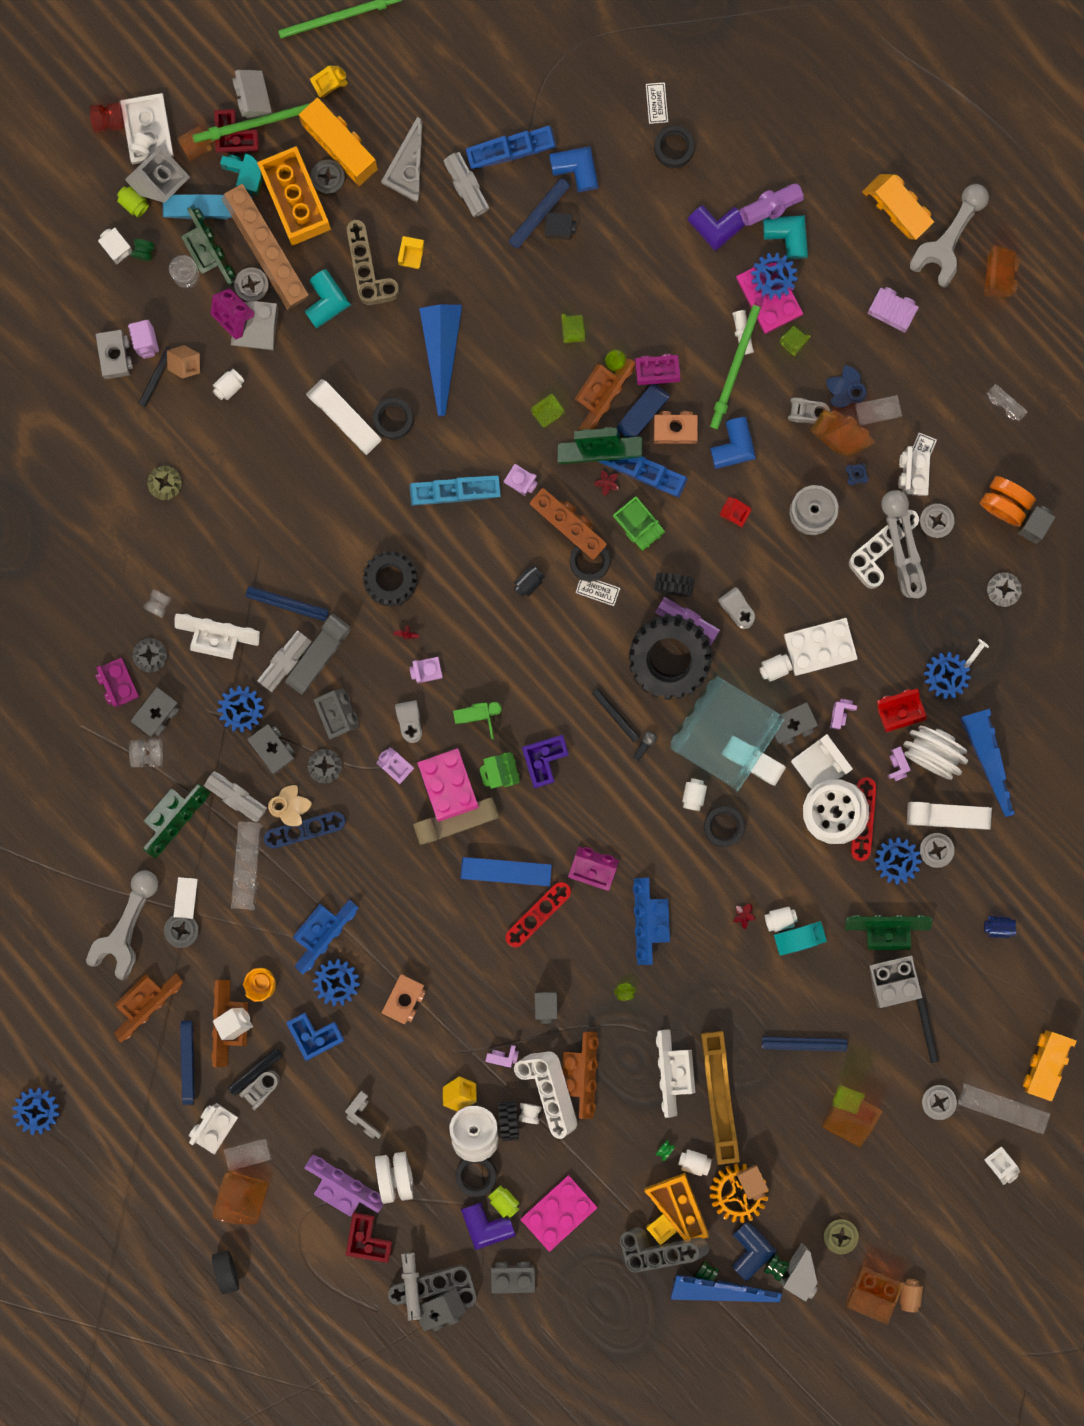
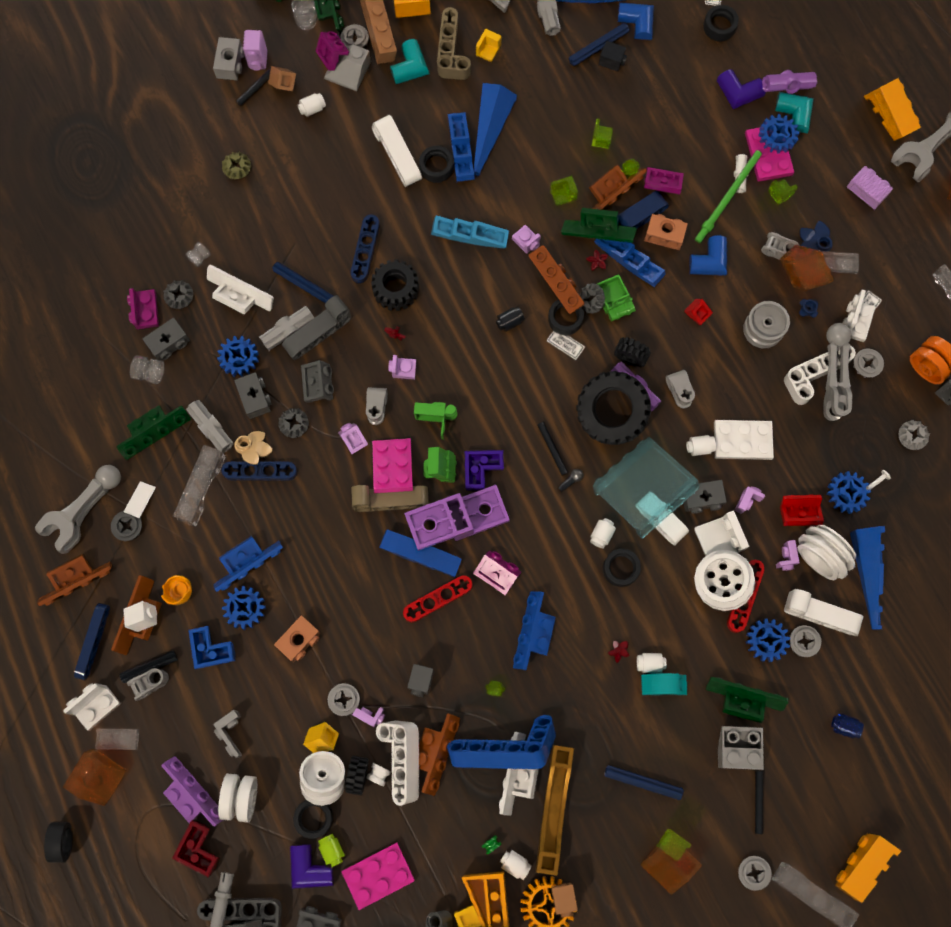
camera: 15 degrees right, 10 degrees down
(345, 542) = (363, 248): none -> dark blue beam
(415, 388) = (461, 146): none -> blue slope
(466, 1057) = (336, 693): none -> light grey gear
(534, 823) = (456, 517): none -> medium lavender bracket
(612, 523) = (597, 302): none -> dark grey gear
(657, 1056) = (506, 753): none -> blue beam

